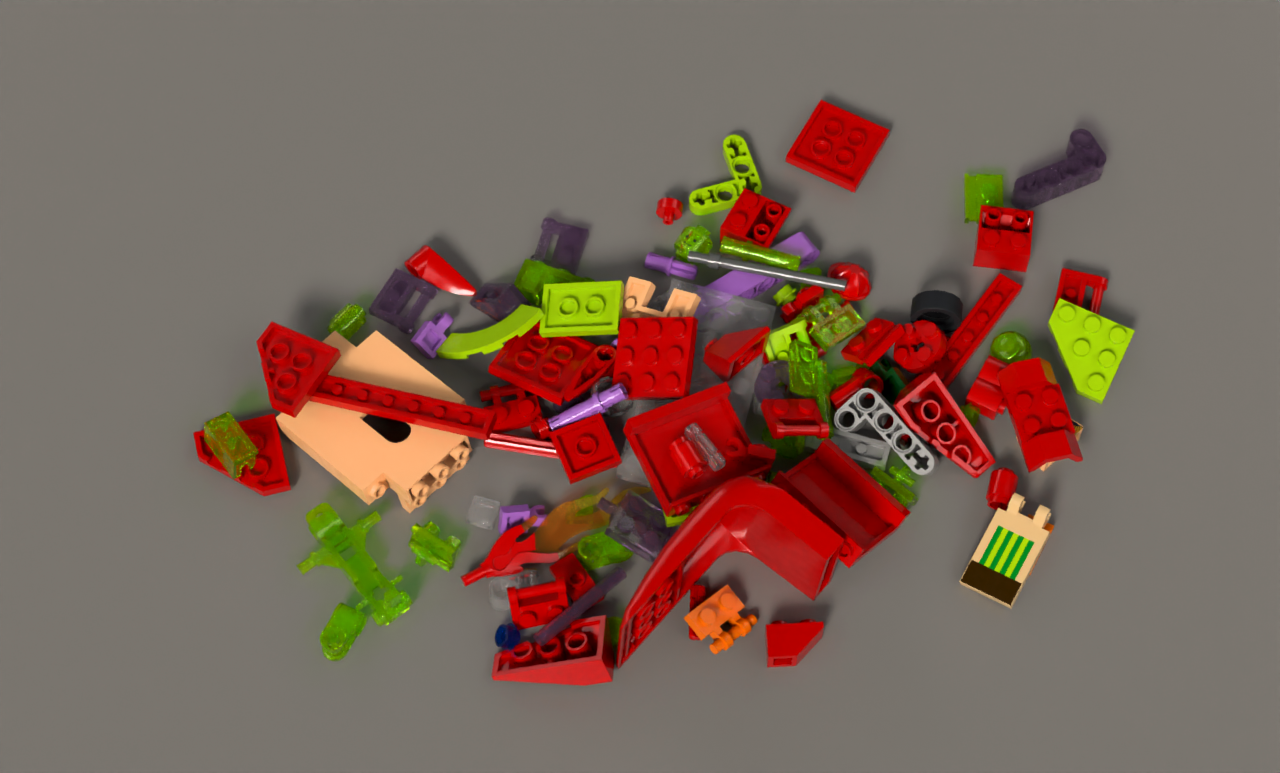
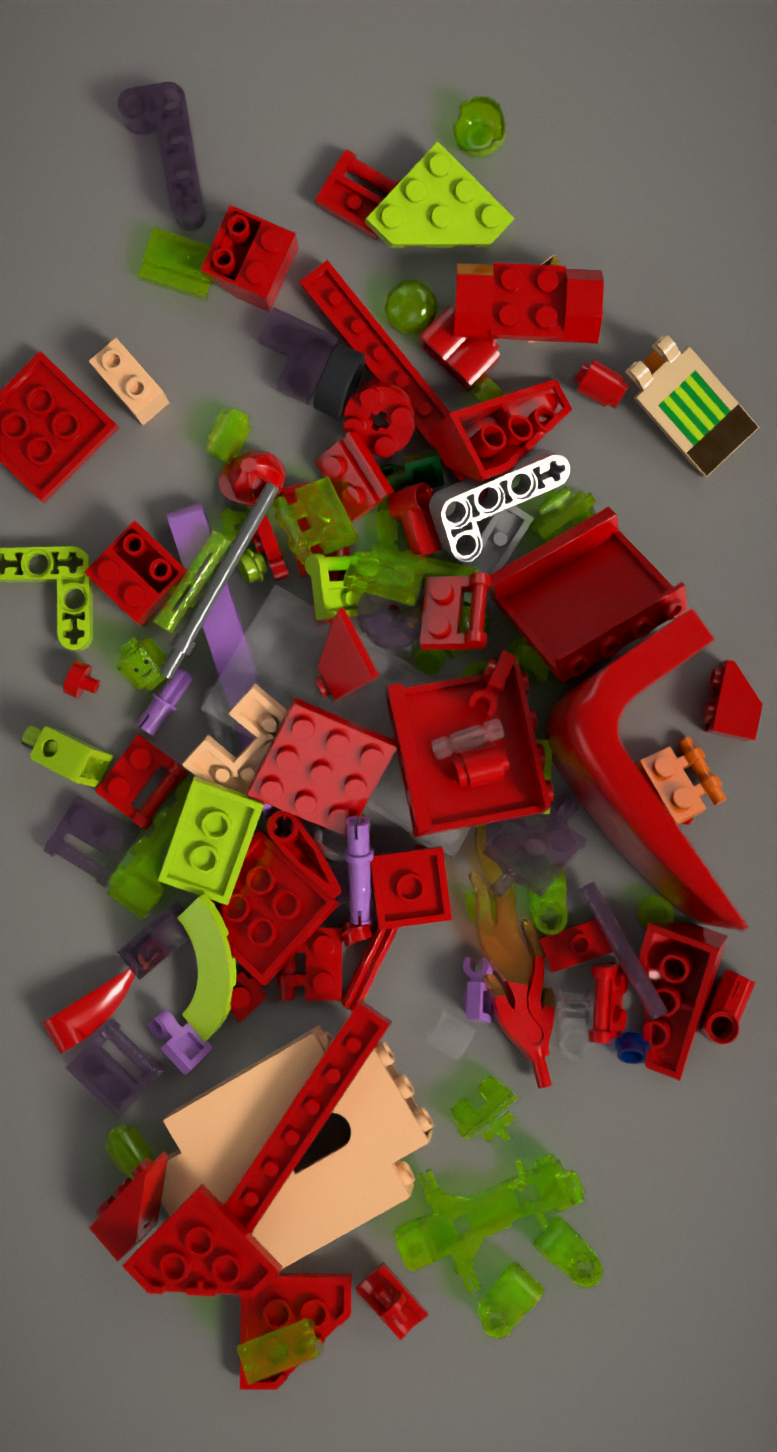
camera: 75 degrees left, 25 degrees up
(279, 514) = (391, 1301): none -> red hips
(300, 598) = (513, 1297): none -> clear neon green piece
(317, 324) = (135, 1211): none -> red slope
(476, 371) = (246, 995): none -> red plate
(559, 697) = (729, 1002): none -> red piece
(610, 261) = (133, 774): none -> red plate
(617, 204) = (67, 755): none -> lime torso
(755, 426) = (430, 660): none -> clear neon green hinge
(873, 257) = (228, 435): none -> clear neon green brick
(888, 187) = (129, 381): none -> light nougat brick
(958, 281) = (307, 353): none -> clear purple plate
(1158, 360) = (480, 127): none -> clear neon green hair

